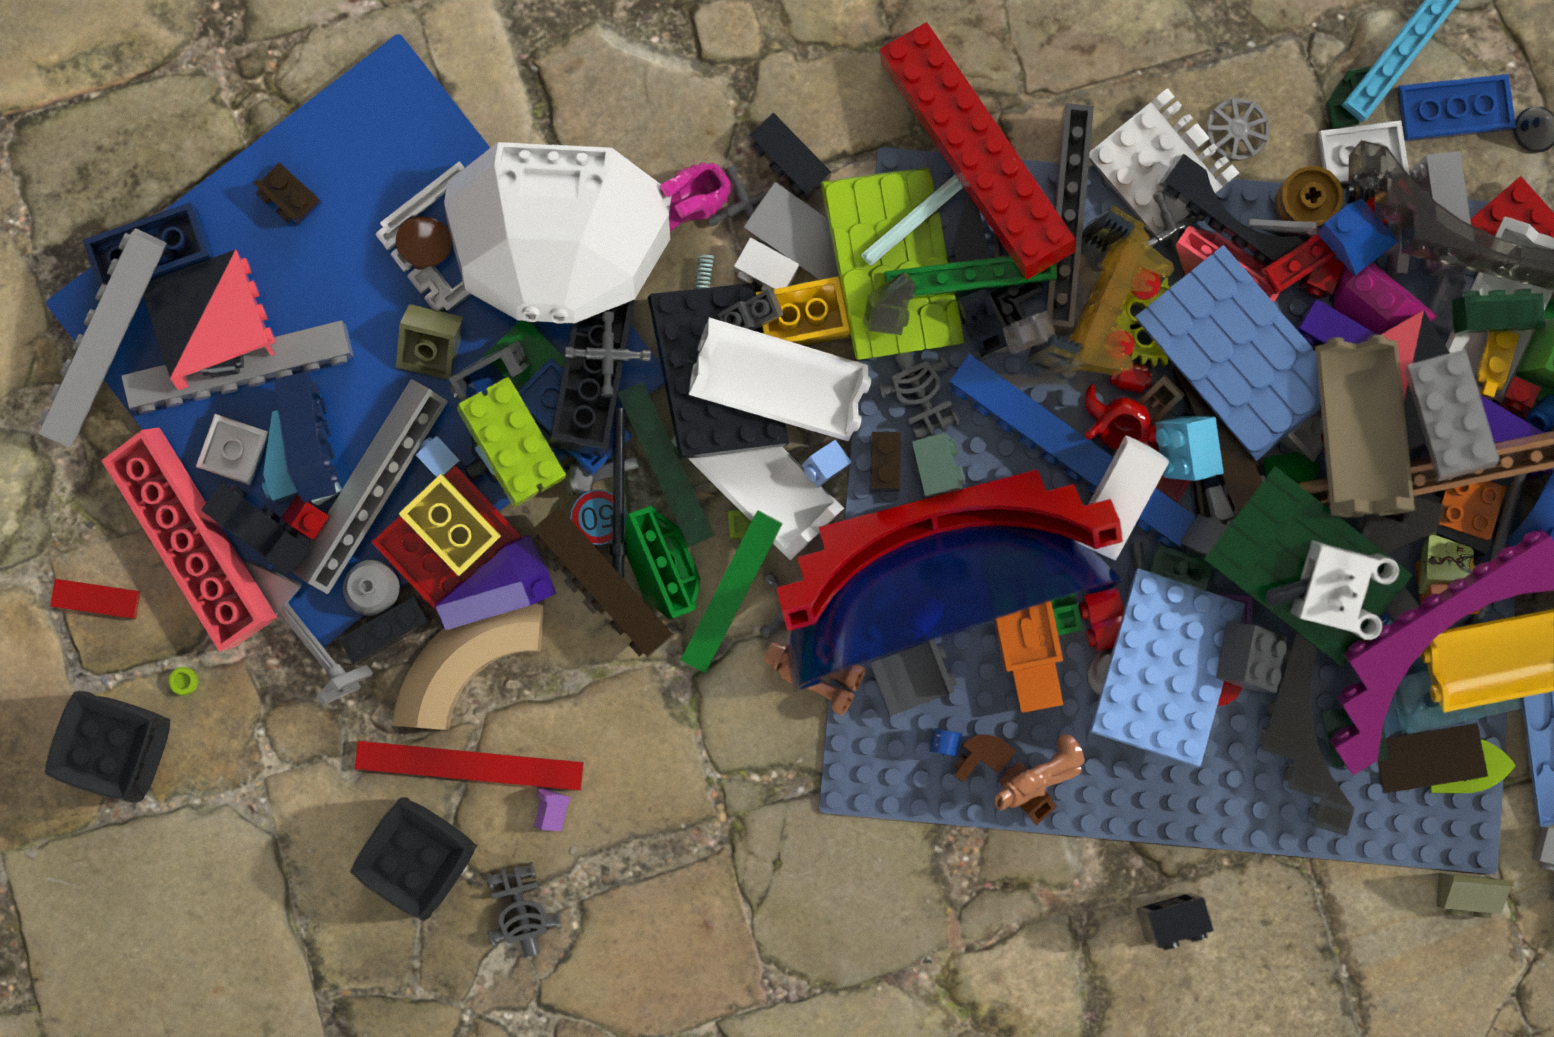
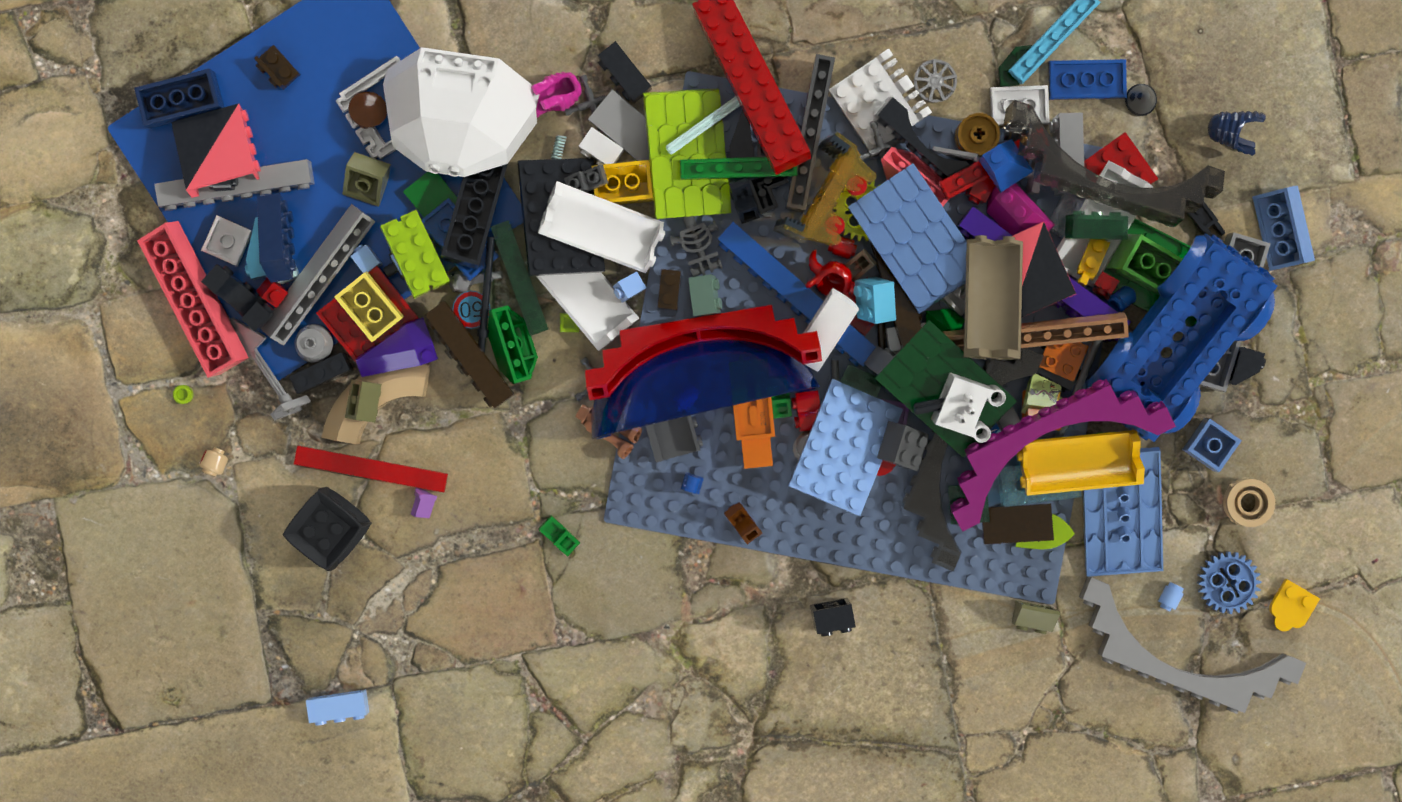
camera: 15 degrees right, 5 degrees up
(95, 598) = (127, 333): red tile -> none
(102, 338) = (143, 156): light grey brick -> none
(107, 747) = (127, 435): black piece -> none
(236, 776) = (213, 462): none -> tan head
(452, 663) = (363, 401): none -> olive brick
(512, 356) = (420, 195): dark grey panel -> none
(527, 937) = (400, 587): dark grey piece -> none
(607, 353) = (485, 200): dark grey piece -> none
(731, 591) = (557, 368): green tile -> none
(756, 839) = (559, 535): none -> green slope
(888, 305) = (680, 183): clear smoke slope -> none
(983, 748) = (716, 489): reddish brown brick -> none
(1029, 332) = (774, 211): clear brick -> none
(1033, 782) = (746, 516): nougat piece -> none
(1451, 415) = (1052, 296): light grey brick -> none

